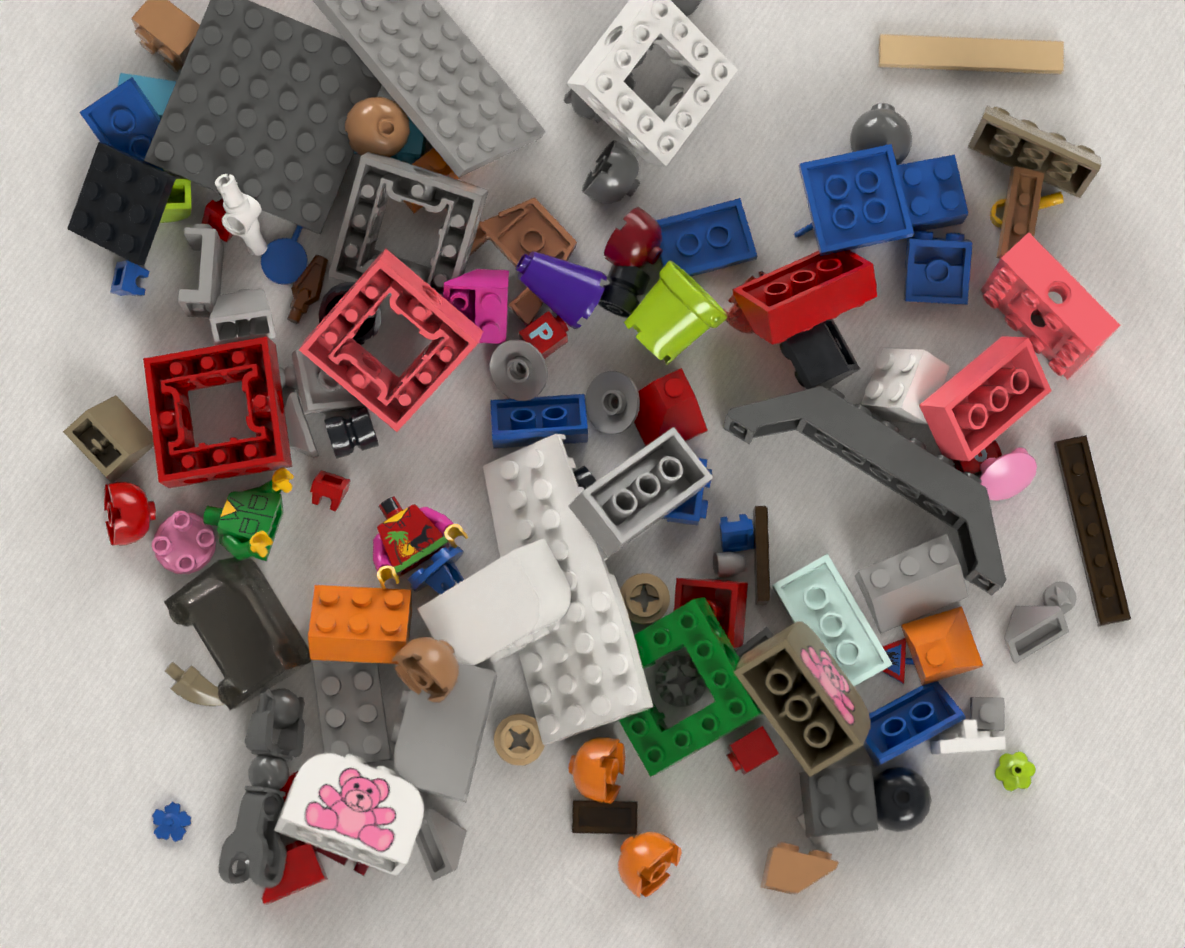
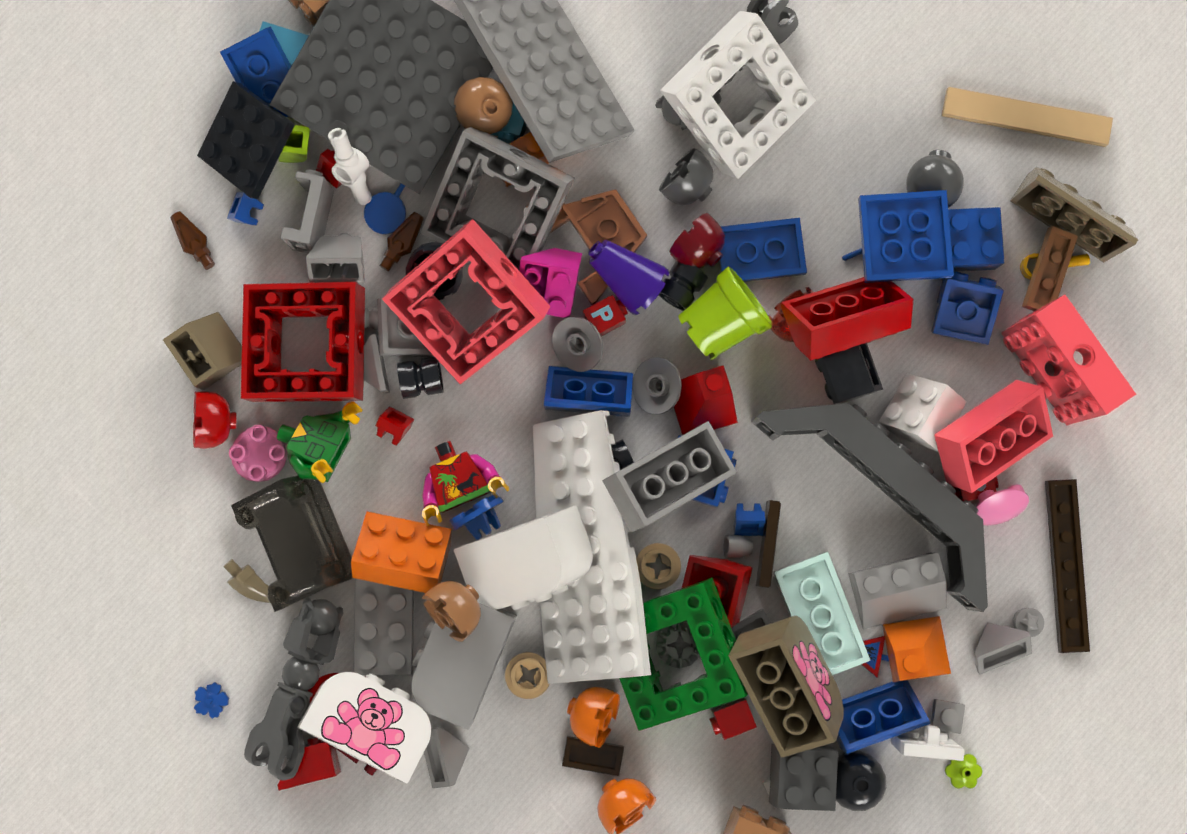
camera: 10 degrees right, 5 degrees up
(75, 321) = (192, 239): none -> reddish brown piece

